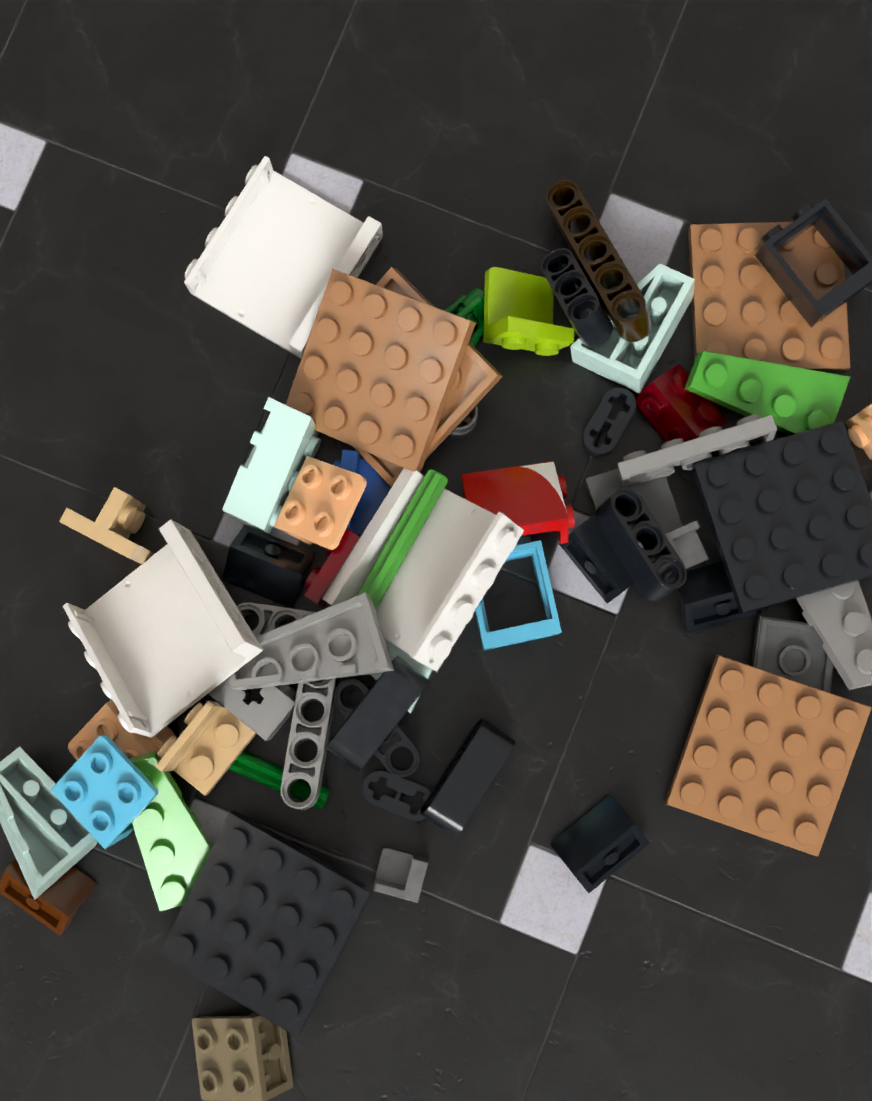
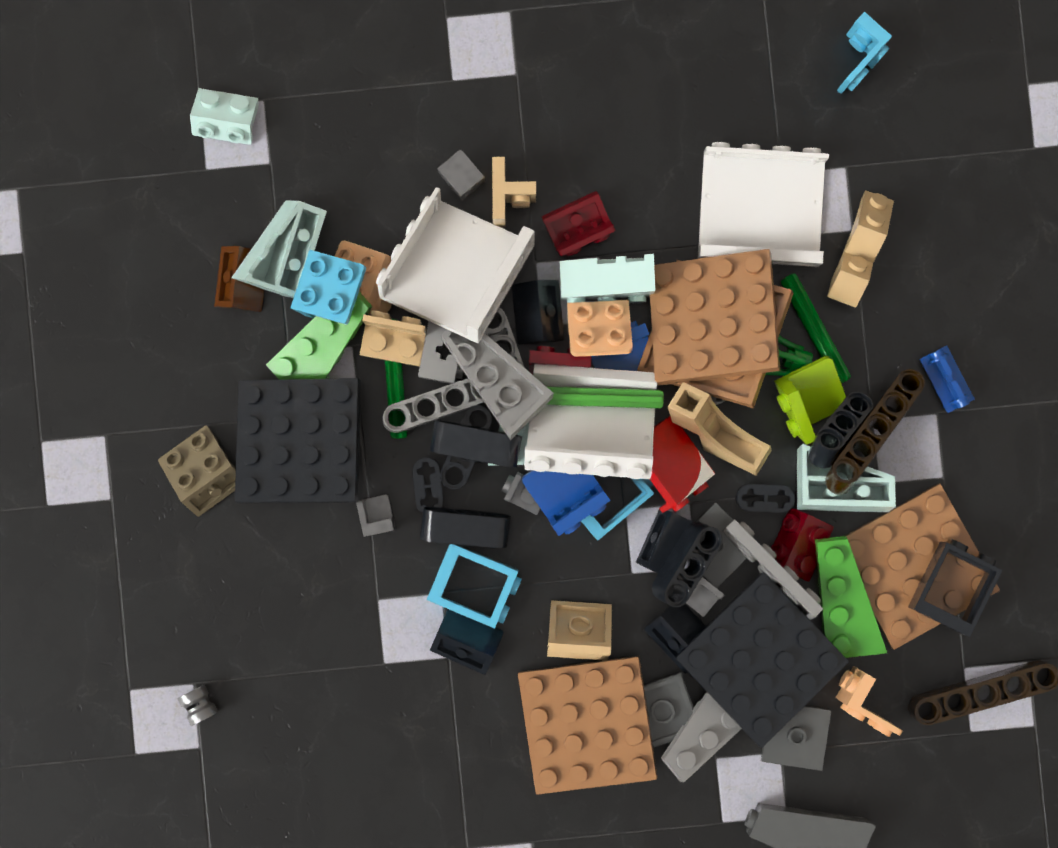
camera: 60 degrees right, 5 degrees up
(66, 571) = (461, 174): none -> flat silver panel
(165, 51) = (868, 37): none -> medium azure bracket
(194, 469) = (578, 224): none -> dark red bracket
(382, 167) = (861, 249): none -> tan arch
(446, 271) = (814, 325): none -> green axle
(463, 686) = (518, 494): none -> flat silver bracket
(494, 641) = (566, 497): none -> blue bracket
(514, 836) = (444, 573): none -> medium azure window
(516, 433) = (718, 434): none -> tan arch
(579, 161) = (947, 379): none -> blue hinge
(653, 706) = (580, 630): none -> tan bracket

